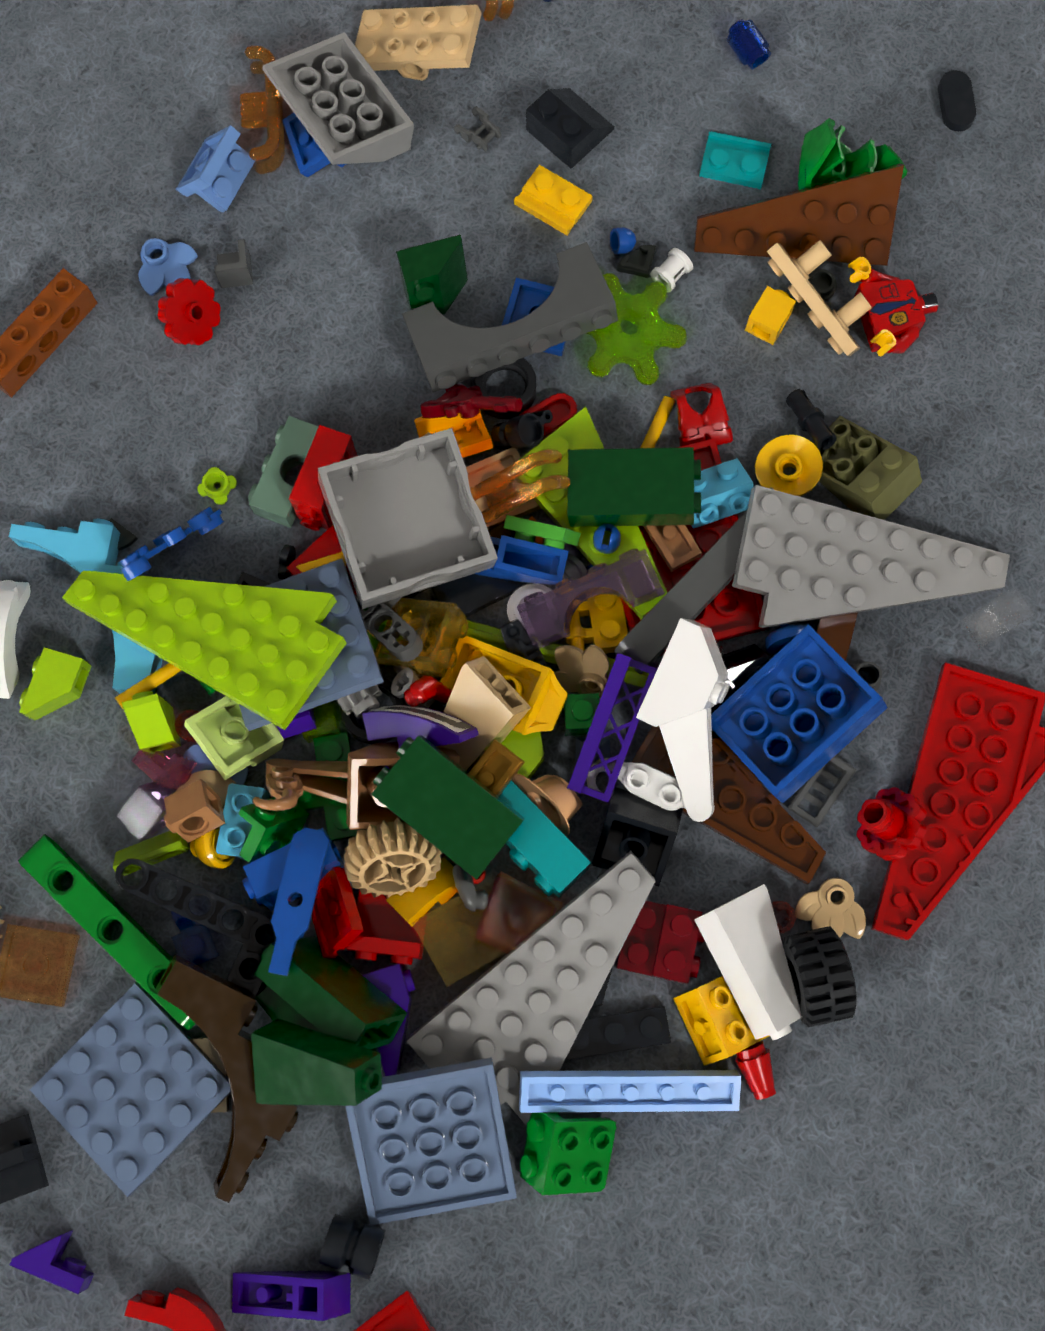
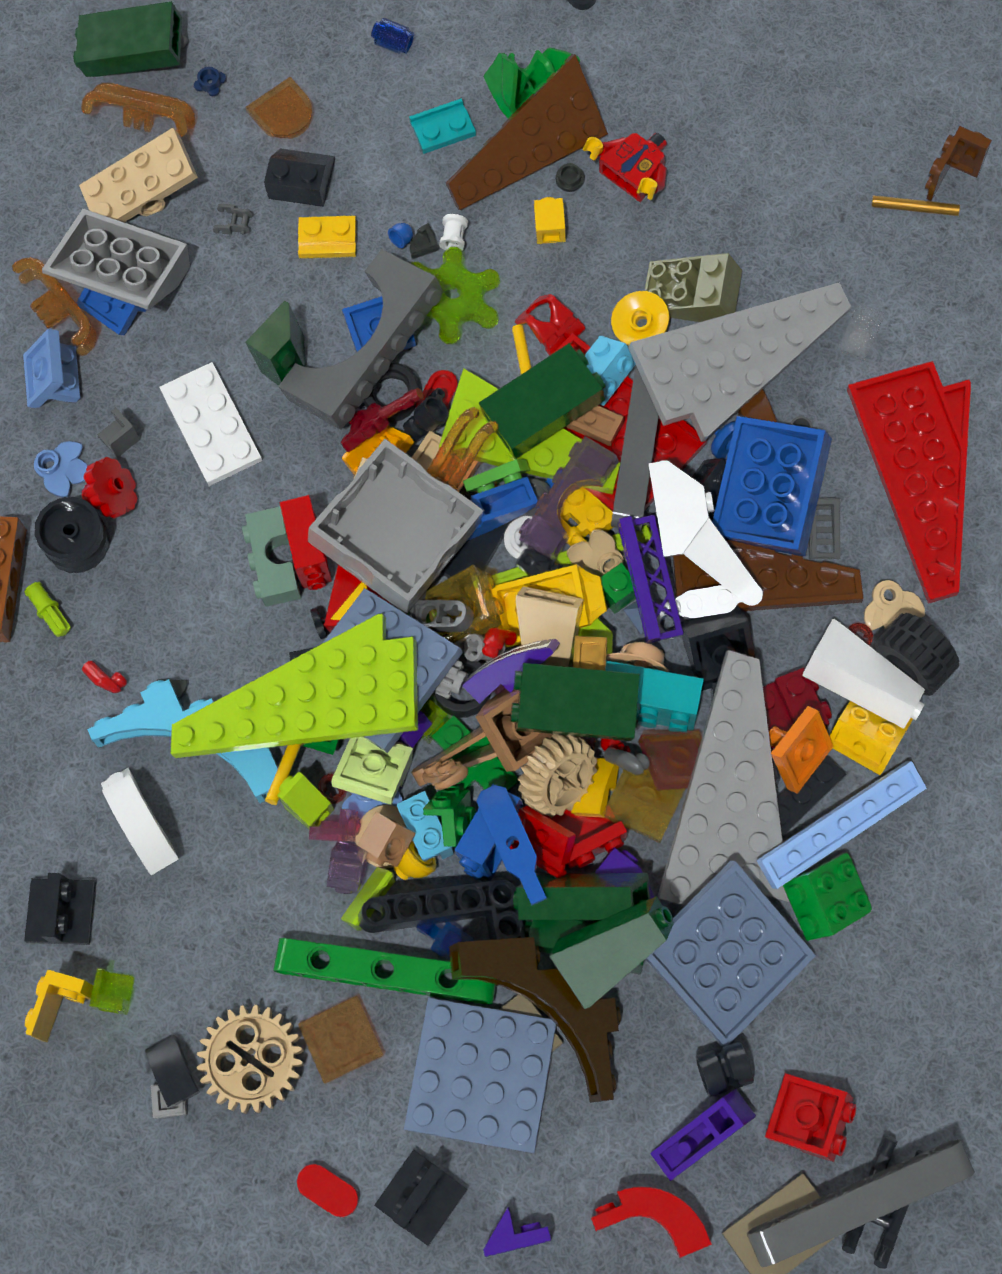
camera: 30 degrees left, 5 degrees down
(55, 683) = (206, 825): lime slope -> none
(62, 389) = (47, 609): none -> lime axle
(62, 487) = (102, 680): none -> red arm
(125, 333) = (72, 534): none -> black wheel
(137, 562) = (213, 688): blue plant -> none
(216, 476) = (216, 597): lime plate -> none
(324, 310) = (210, 424): none -> white plate
(597, 53) = (282, 110): none -> clear orange tile
(615, 539) = (542, 451): blue hinge -> none
(638, 991) = (800, 749): none -> orange tile
(757, 1070) = (917, 749): red cone -> none
(811, 419) = (632, 275): black pin -> none
(821, 315) = (560, 187): tan plate -> none
(891, 824) = (890, 519): red plant -> none

